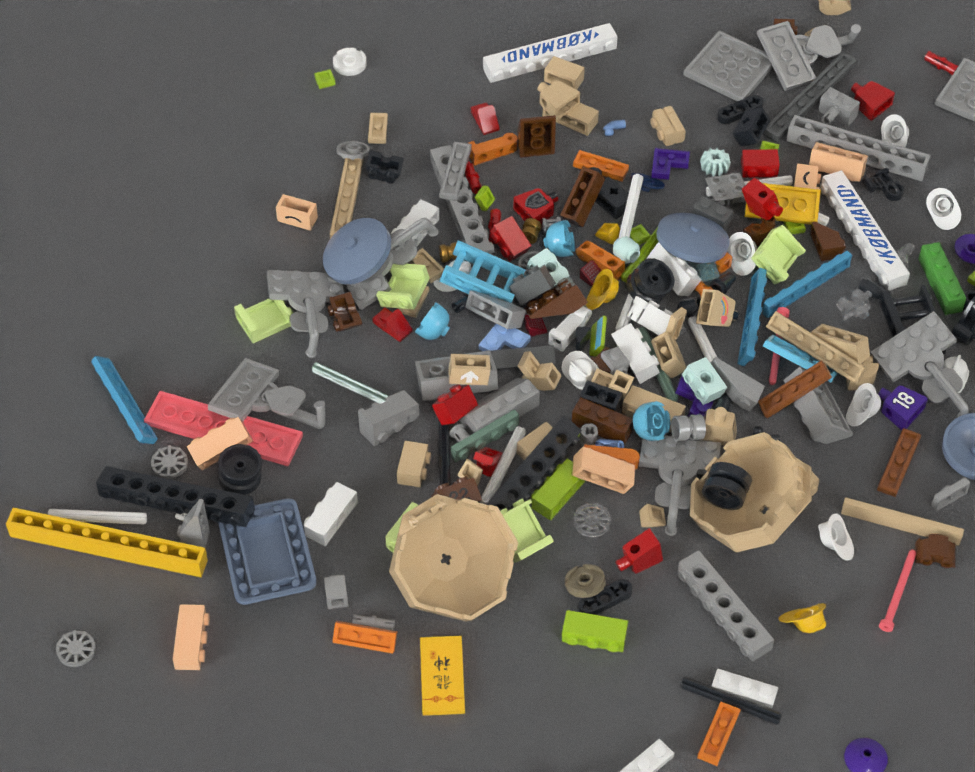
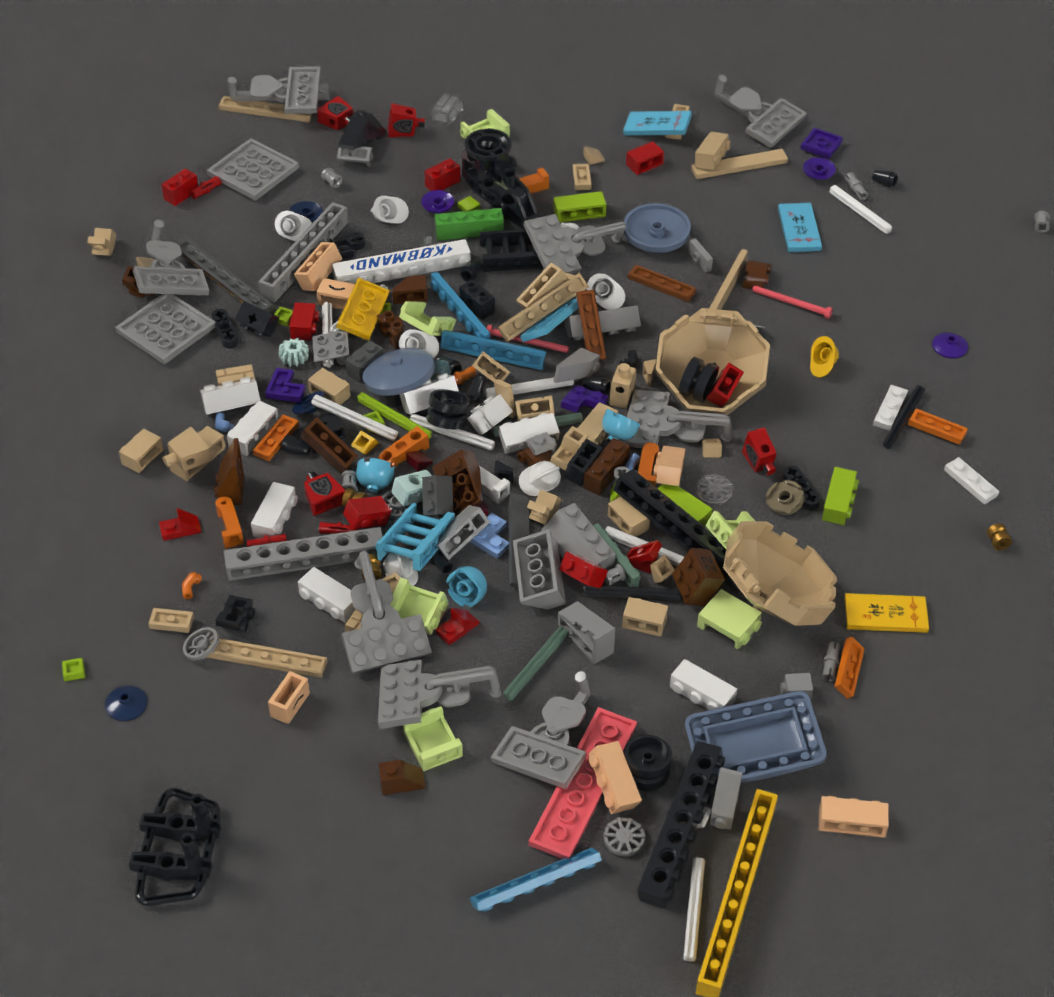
camera: 85 degrees left, 5 degrees down
(75, 648) = (866, 928): light grey wheel -> none
(169, 165) = (183, 866): none -> black piece
(222, 298) = (400, 777): none -> reddish brown slope
(294, 117) = (126, 709): none -> dark blue dish
(344, 312) = (443, 661): reddish brown cylinder -> none
(349, 61) = (52, 644): white tile -> none
(357, 251) = (374, 632): sand blue dish -> none
(417, 133) = (187, 584): none -> orange arm
(455, 171) = (266, 546): light grey tile -> none
(469, 369) = (558, 541): tan brick -> none
(484, 198) = (300, 531): lime tile -> none
(507, 175) = (274, 510): none -> white brick
(539, 54) = (102, 462): white brick -> none
(597, 339) = (507, 457): lime slope -> none
(603, 290) = (441, 445): yellow piece -> none
(608, 145) = (253, 427): none -> white brick
(626, 249) = (402, 422): light aqua head -> none
(642, 122) = (230, 395): none -> white brick
(672, 194) = (332, 386): none -> tan brick
(688, 428) = (627, 400): light grey wheel -> none
(698, 565) = (811, 406): light grey brick -> none
(704, 381) = (575, 383): light aqua brick -> none
(728, 513) = (724, 385): none -> red brick
(761, 200) = (374, 309): red torso -> none
(823, 296) = (477, 299): none -> black brick
(838, 107) = (245, 258): light grey brick -> none
(858, 306) = (491, 281): clear hips -> none
(873, 98) = (240, 236): red torso -> none
(902, 405) = (610, 265): dark purple torso -> none
(924, 142) = (308, 209): none -> dark blue dish
(932, 40) = (177, 187): none -> red brick

